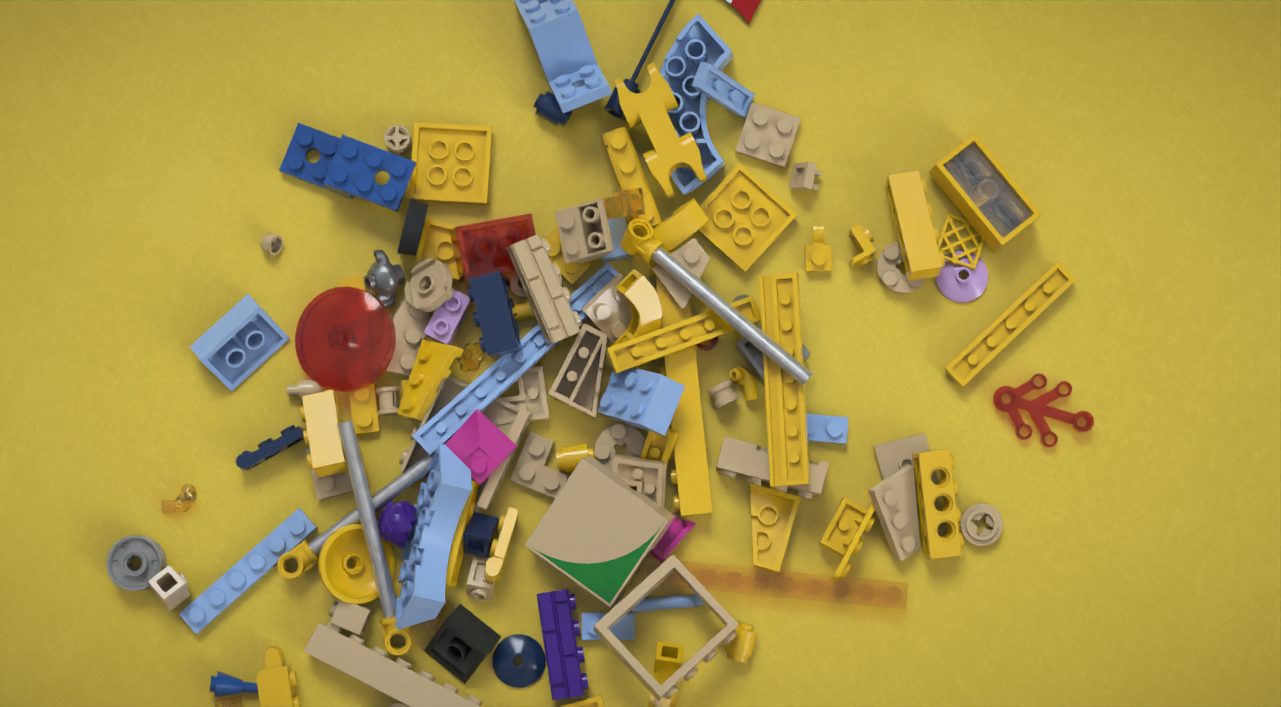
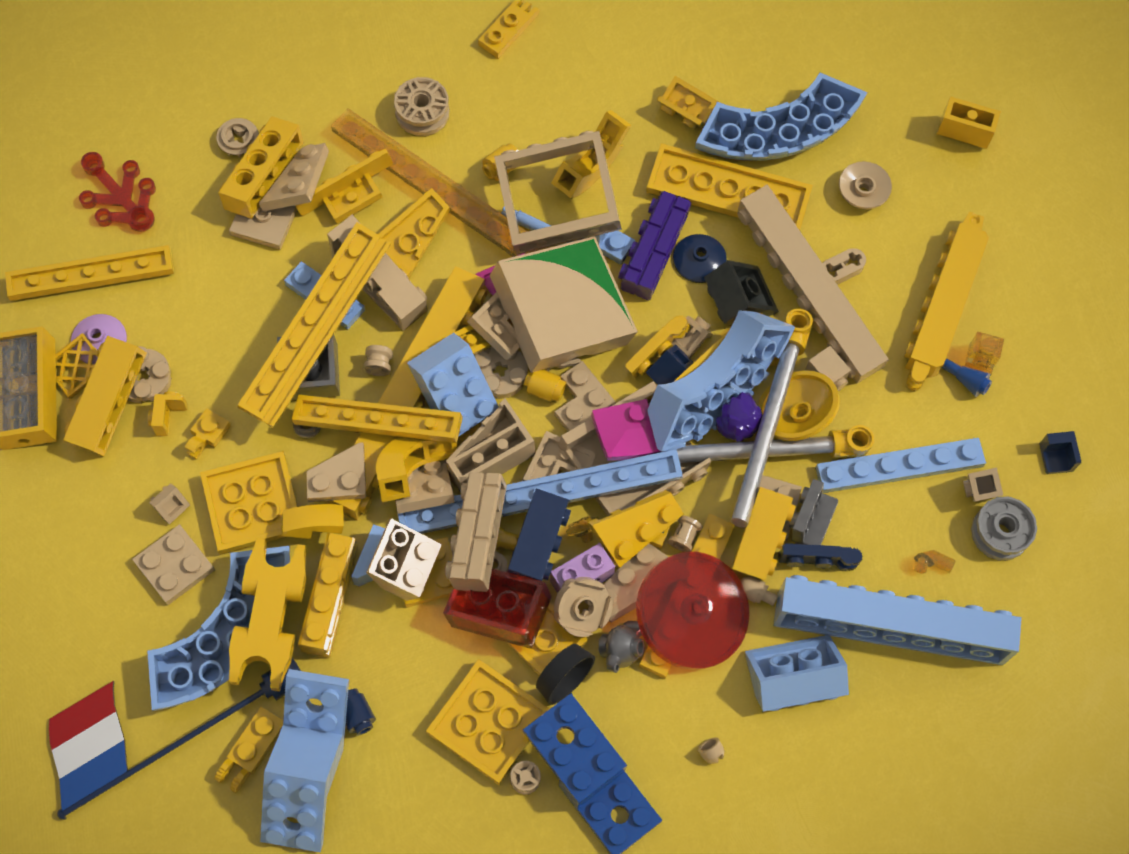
camera: 155 degrees left, 15 degrees down
(122, 661) = (1060, 452): none -> dark blue panel
(181, 425) = (897, 620): none -> light blue brick
(292, 480) = (815, 515): none -> flat silver bracket
(614, 41) = (251, 747): none -> yellow hinge
(625, 203) = (349, 561): clear yellow brick -> none
(639, 240) = (356, 520): flat silver piece -> none
(722, 89) = (183, 620): light blue plate -> none
(746, 380) = (349, 363): yellow arm -> none
(860, 648) = (417, 93): none -> tan wheel

